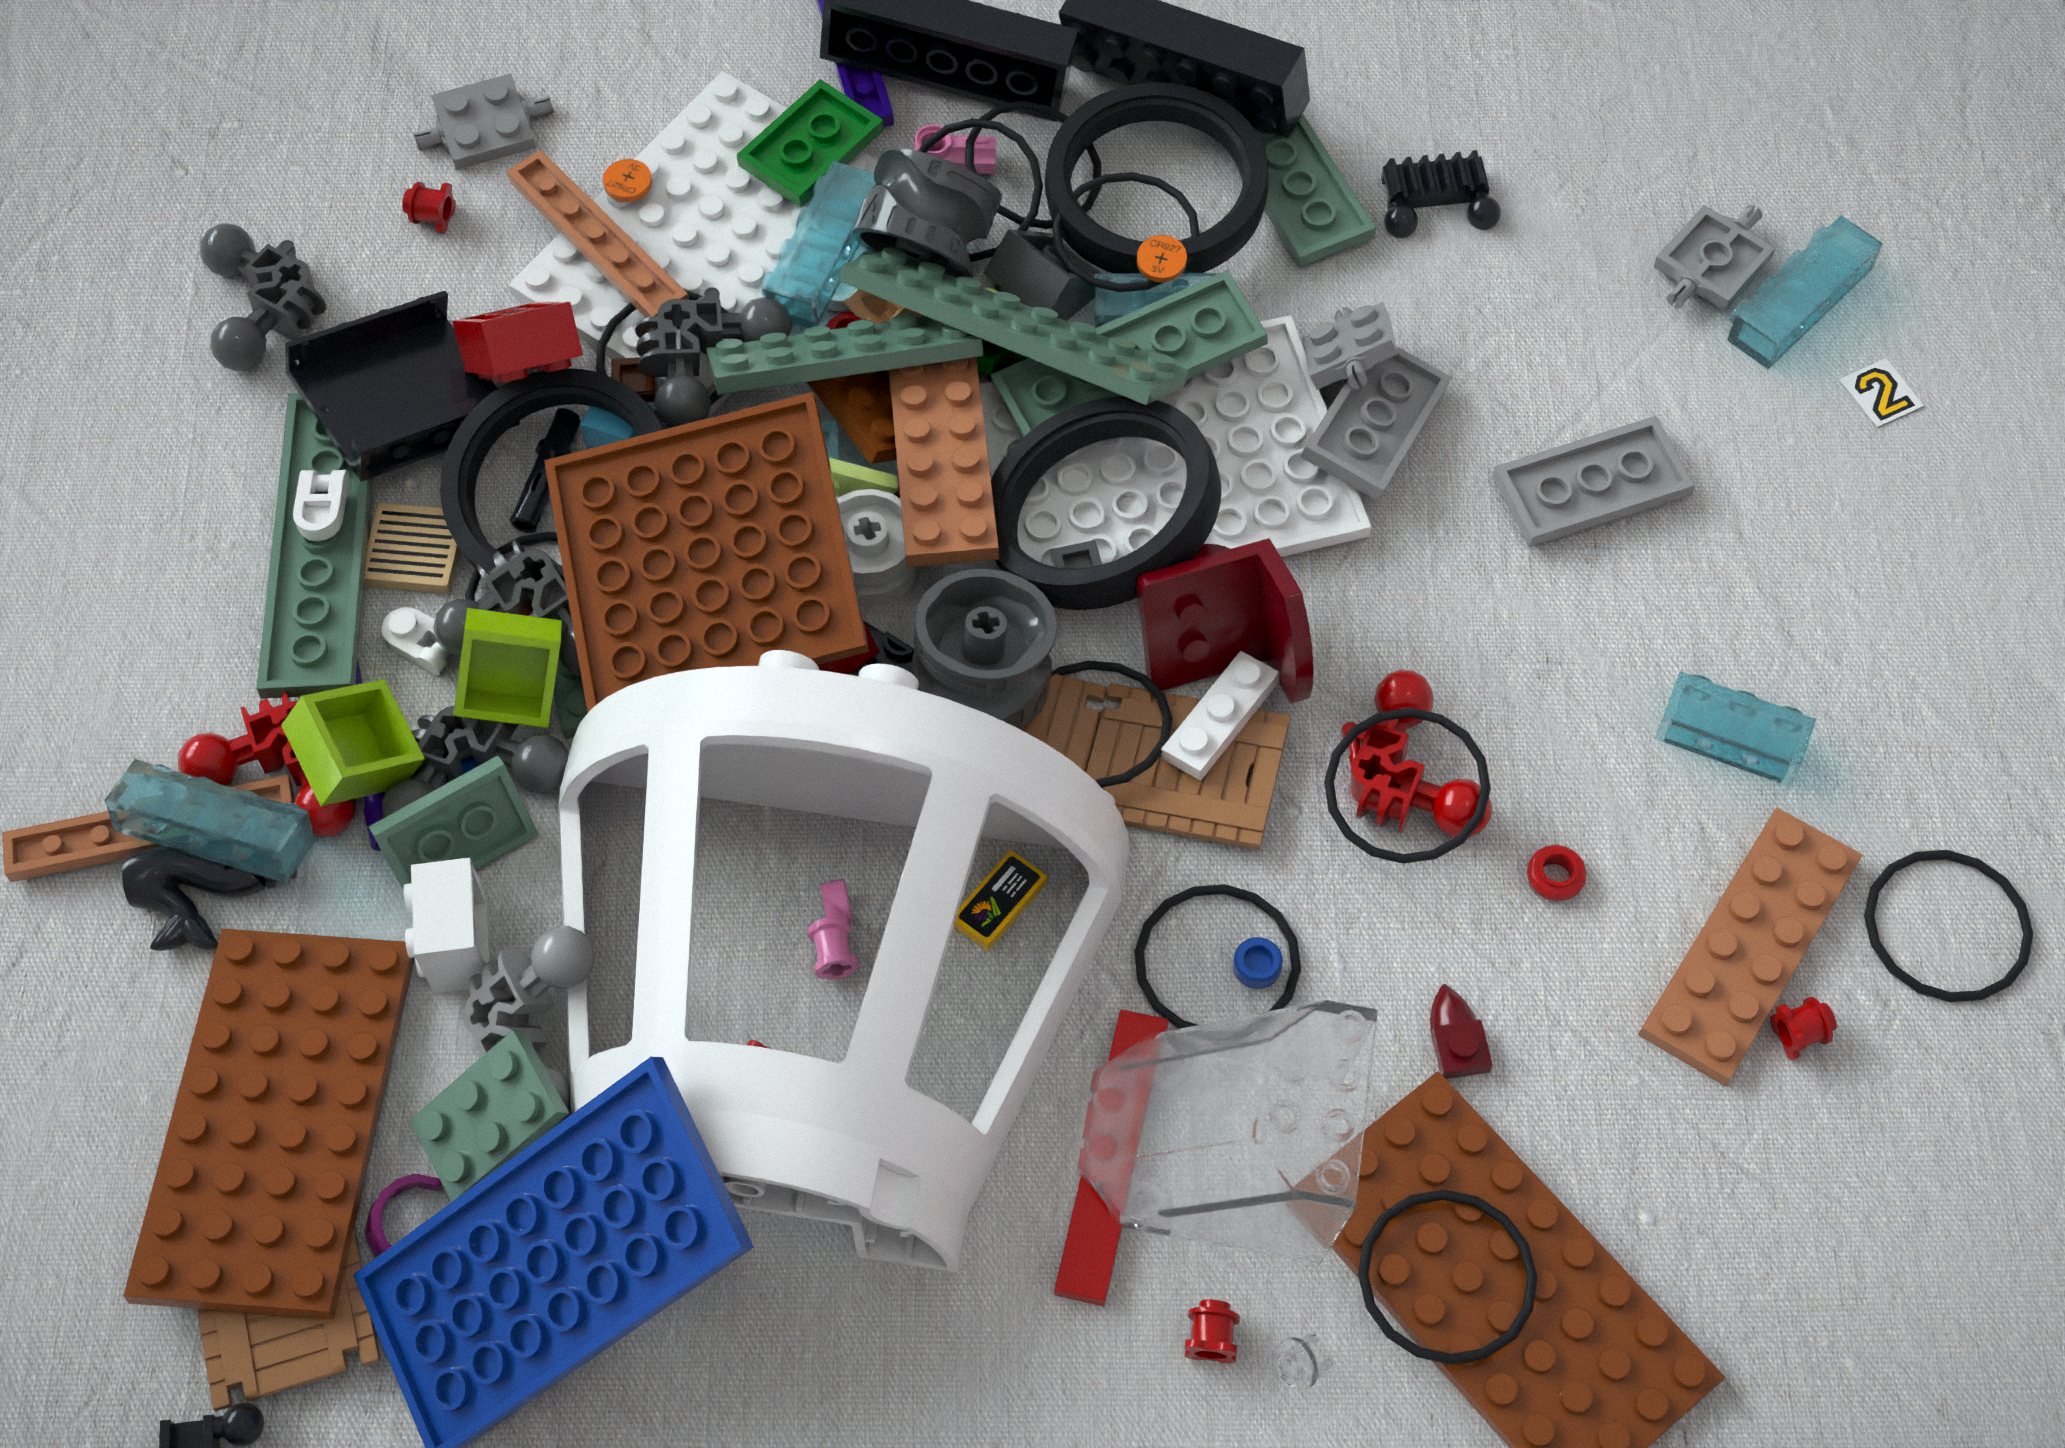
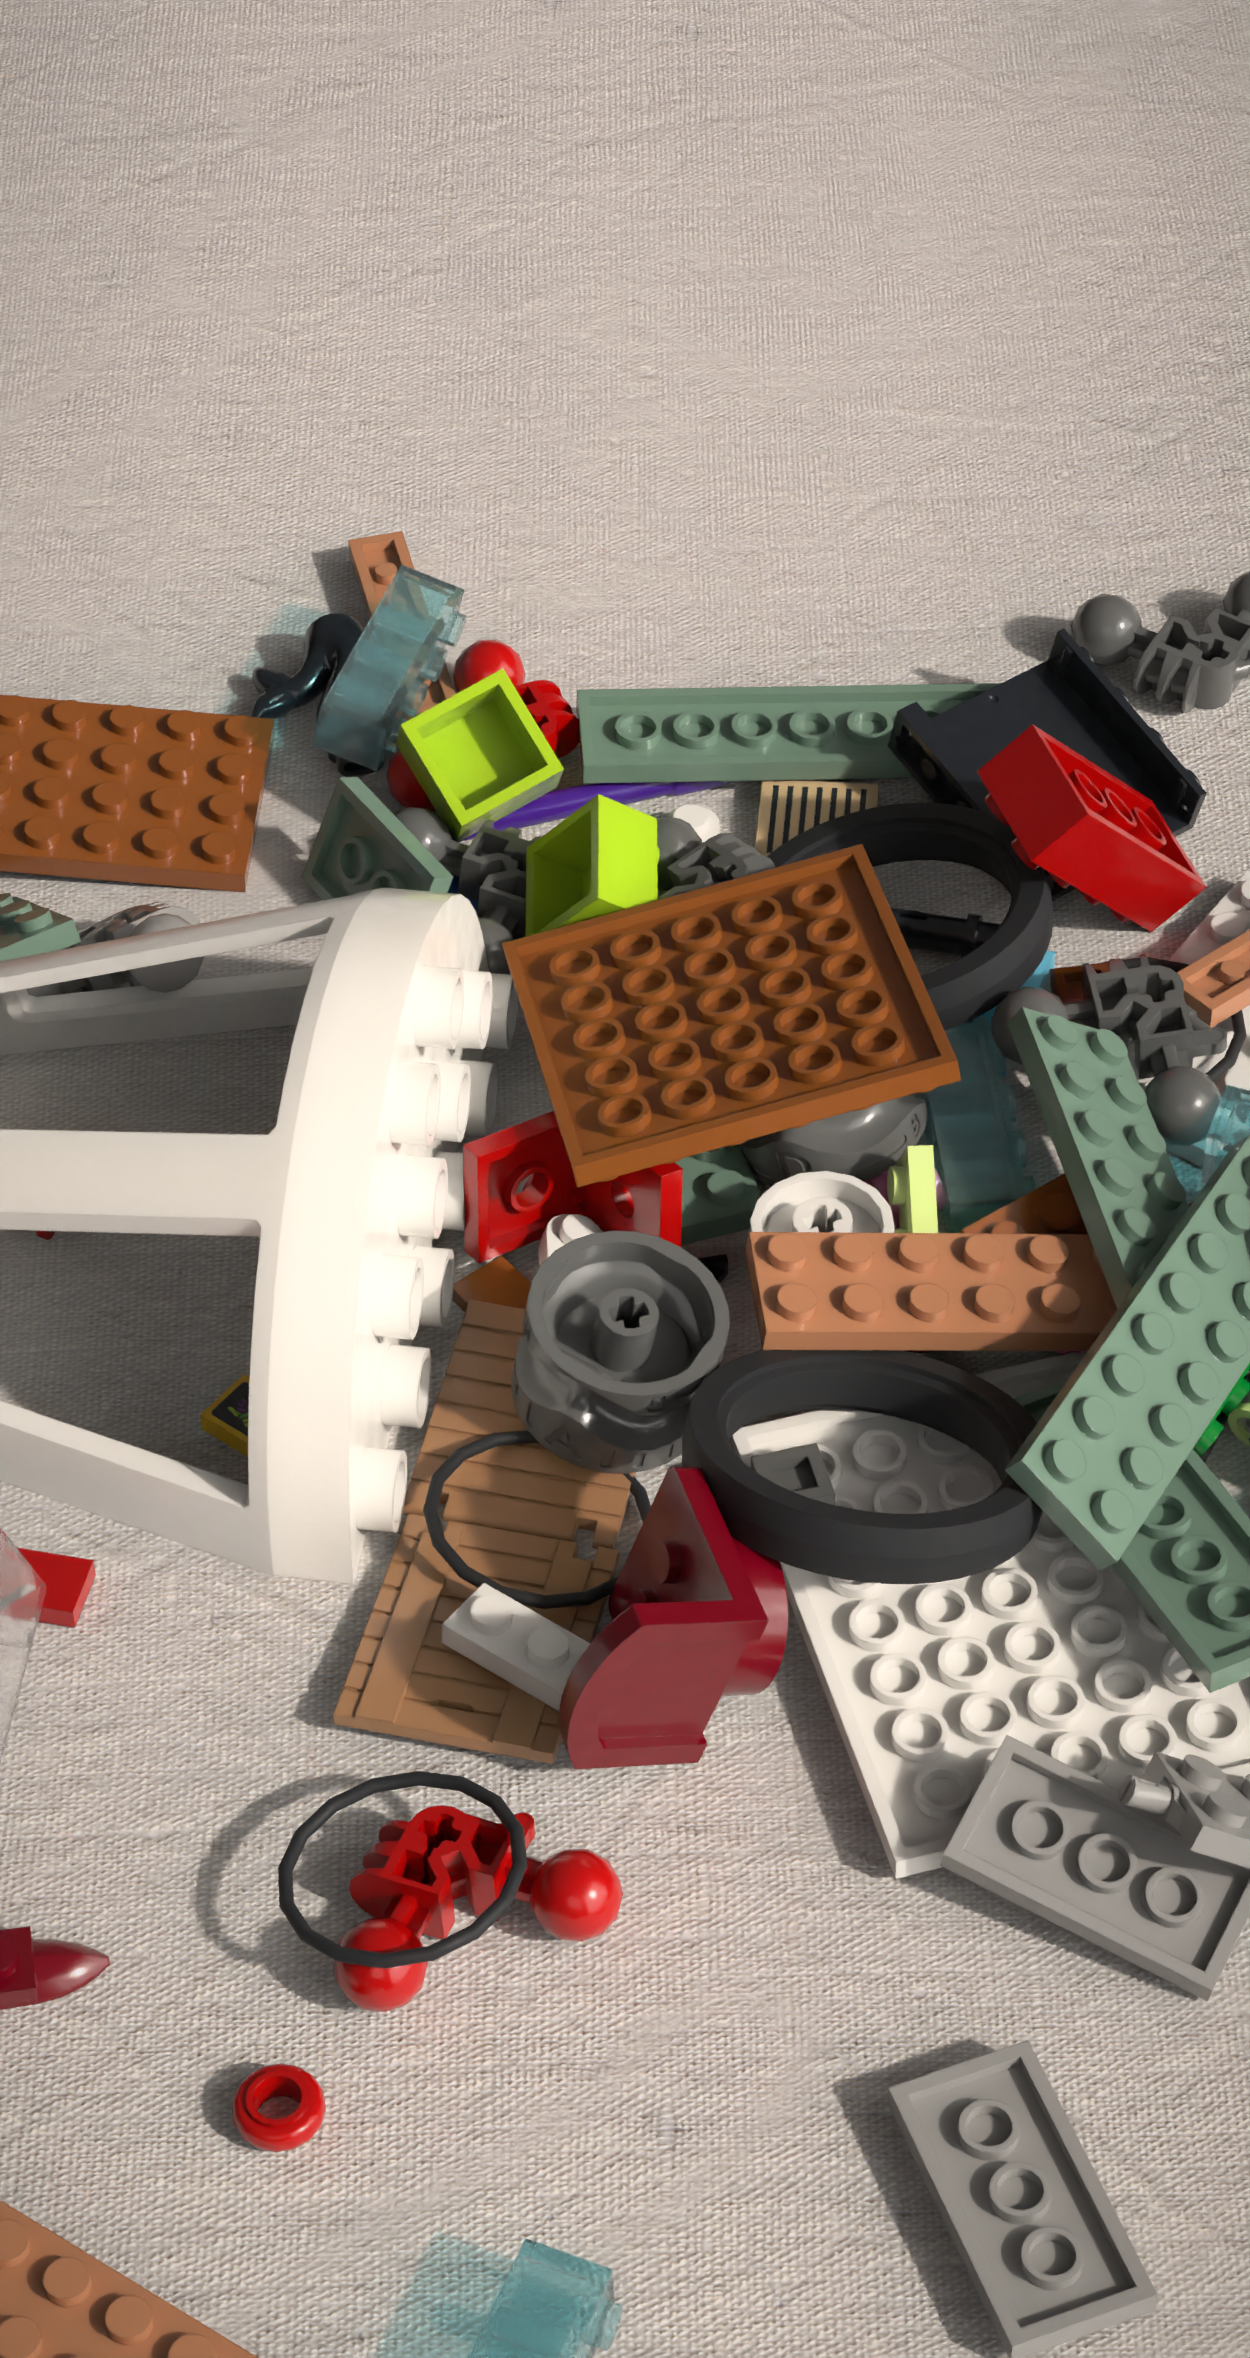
camera: 90 degrees right, 15 degrees down
(318, 514) = (847, 709): white plate -> none
(448, 923) = (243, 869): white piece -> none
(831, 933) = (214, 1256): bright pink connector -> none
(1213, 890) = (178, 1769): black piece -> none
(1257, 963) = (148, 1714): blue tile -> none

